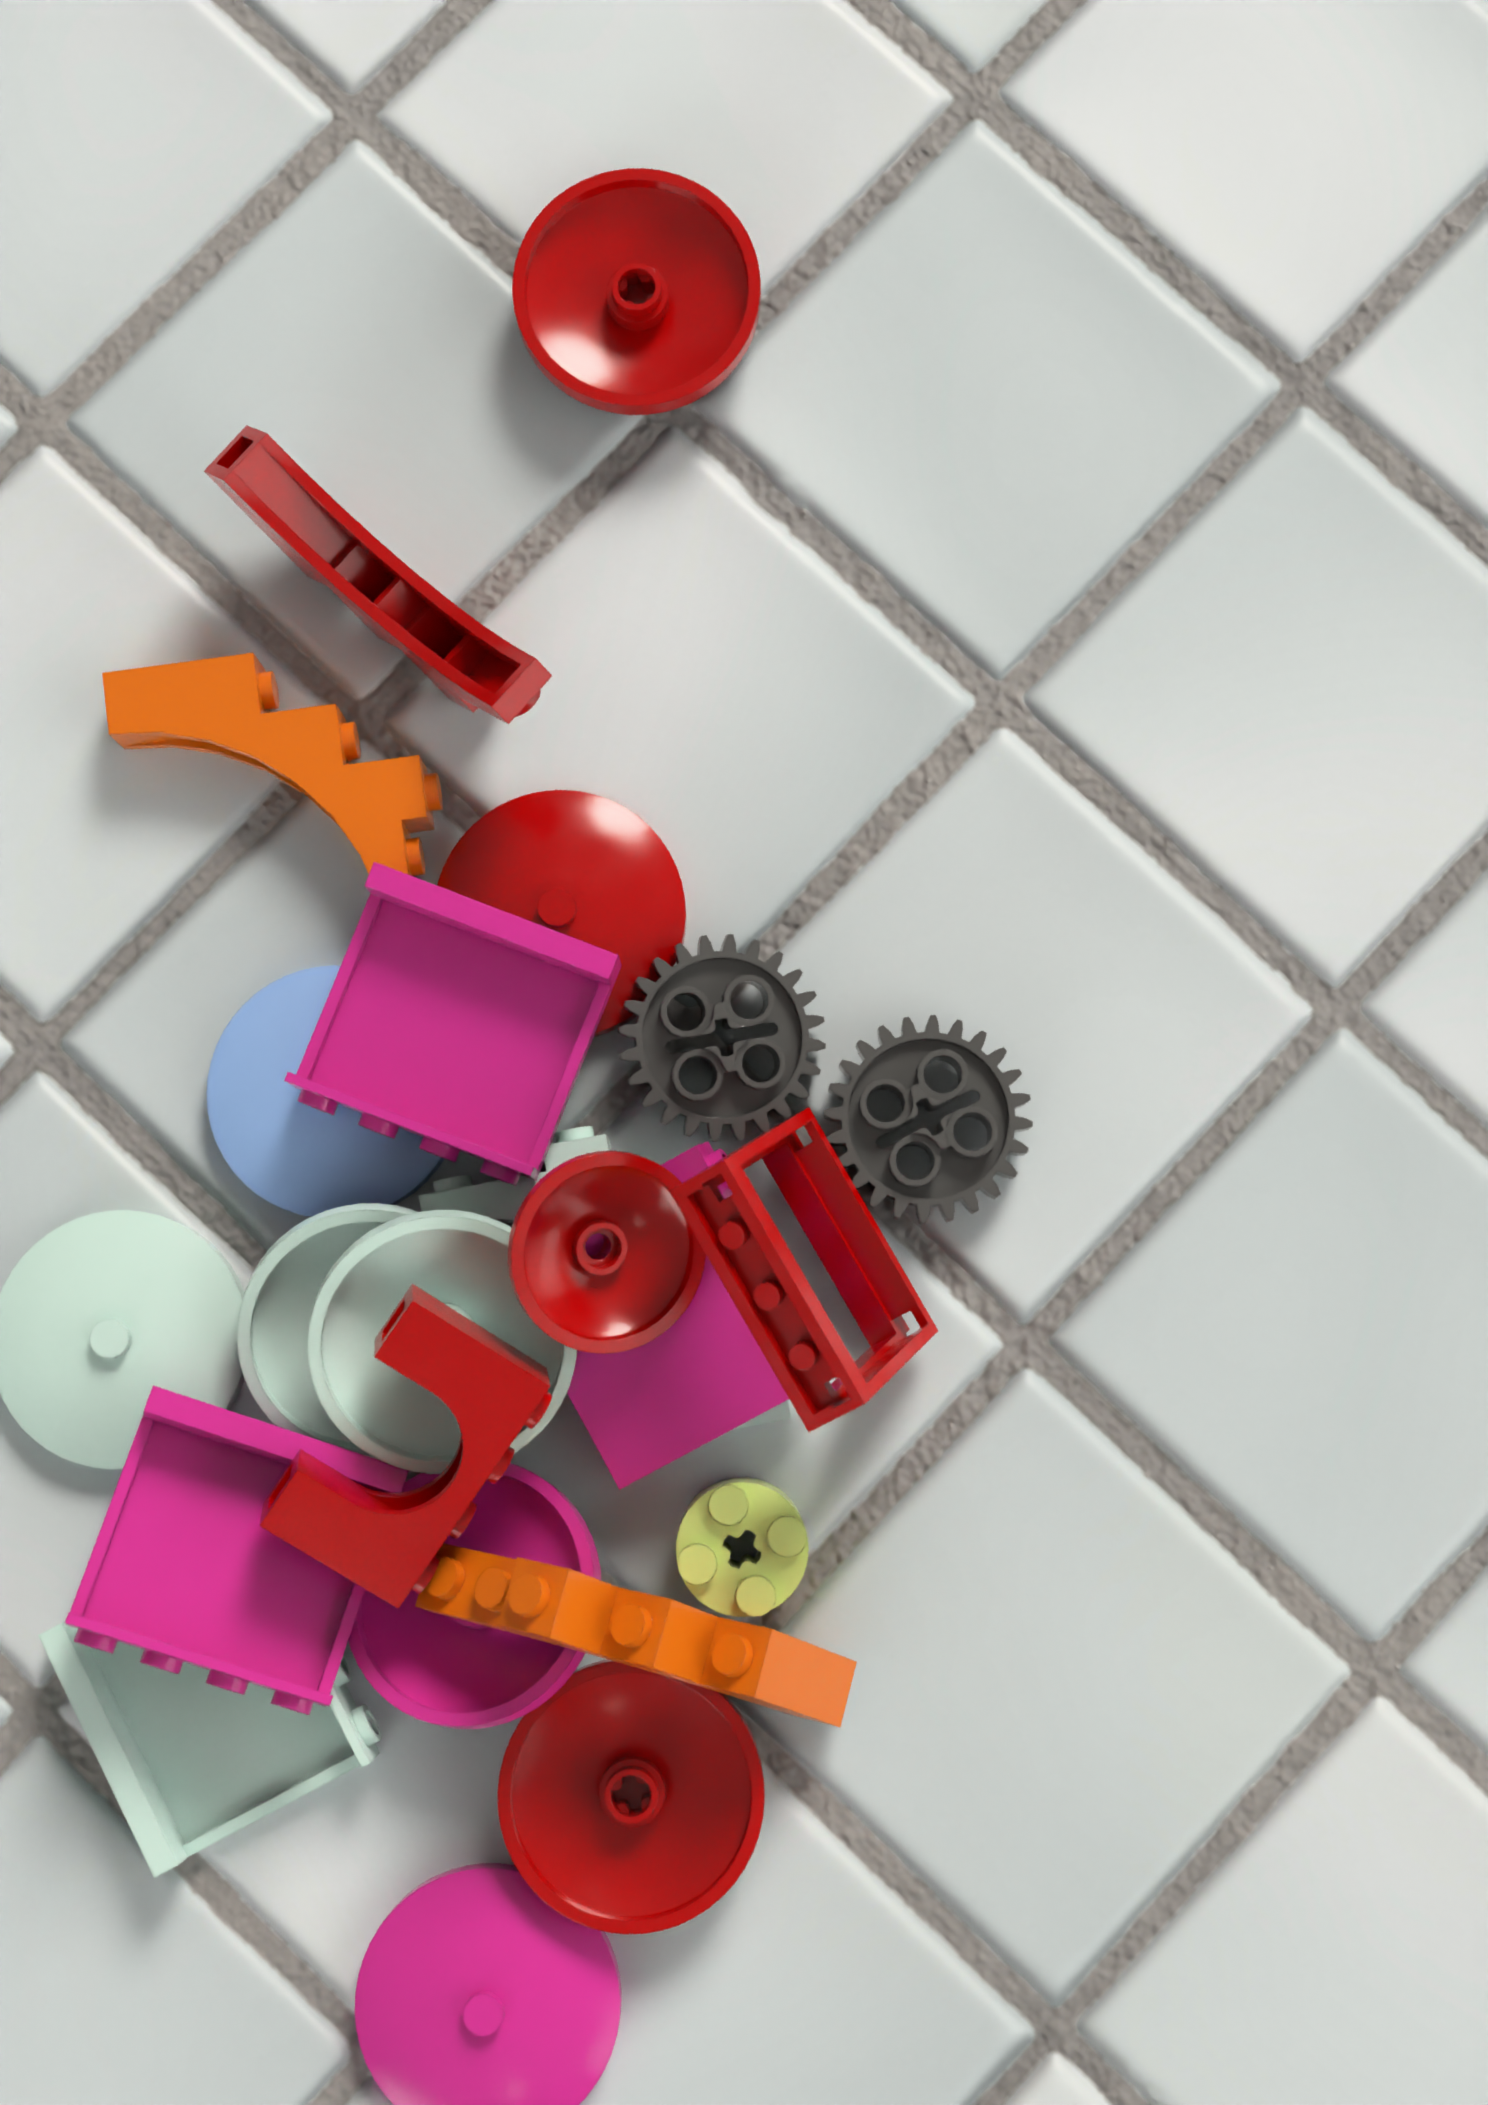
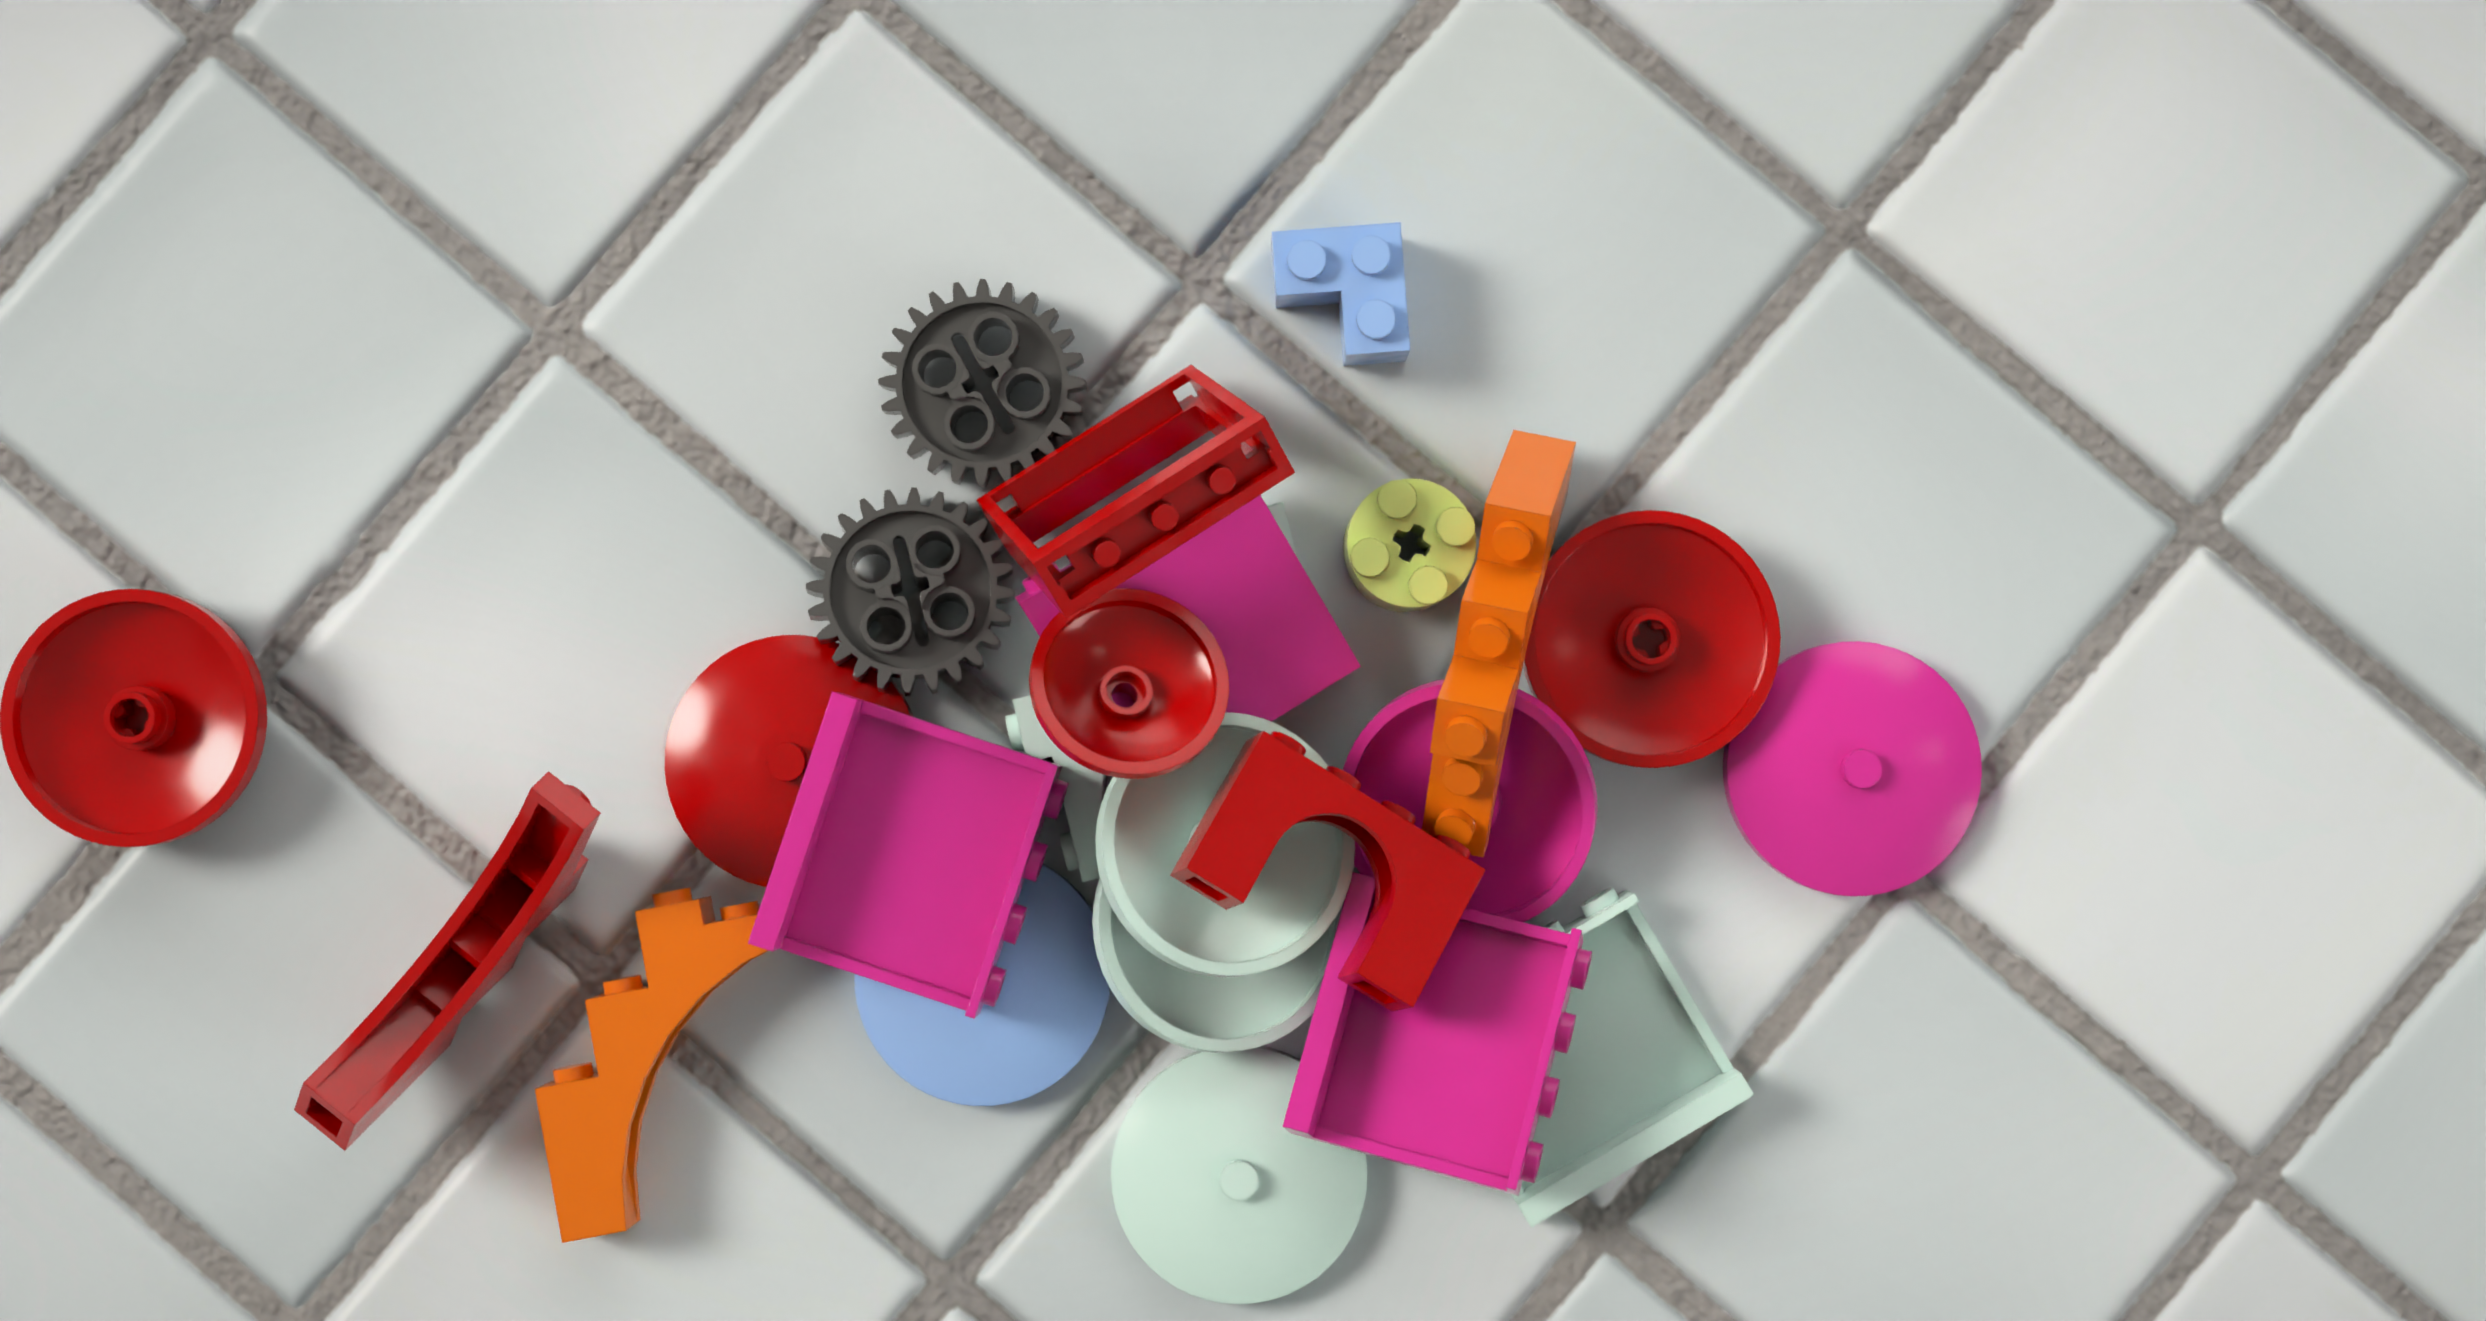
camera: 95 degrees left, 5 degrees up
(1028, 1507) = (1359, 272): none -> light blue brick

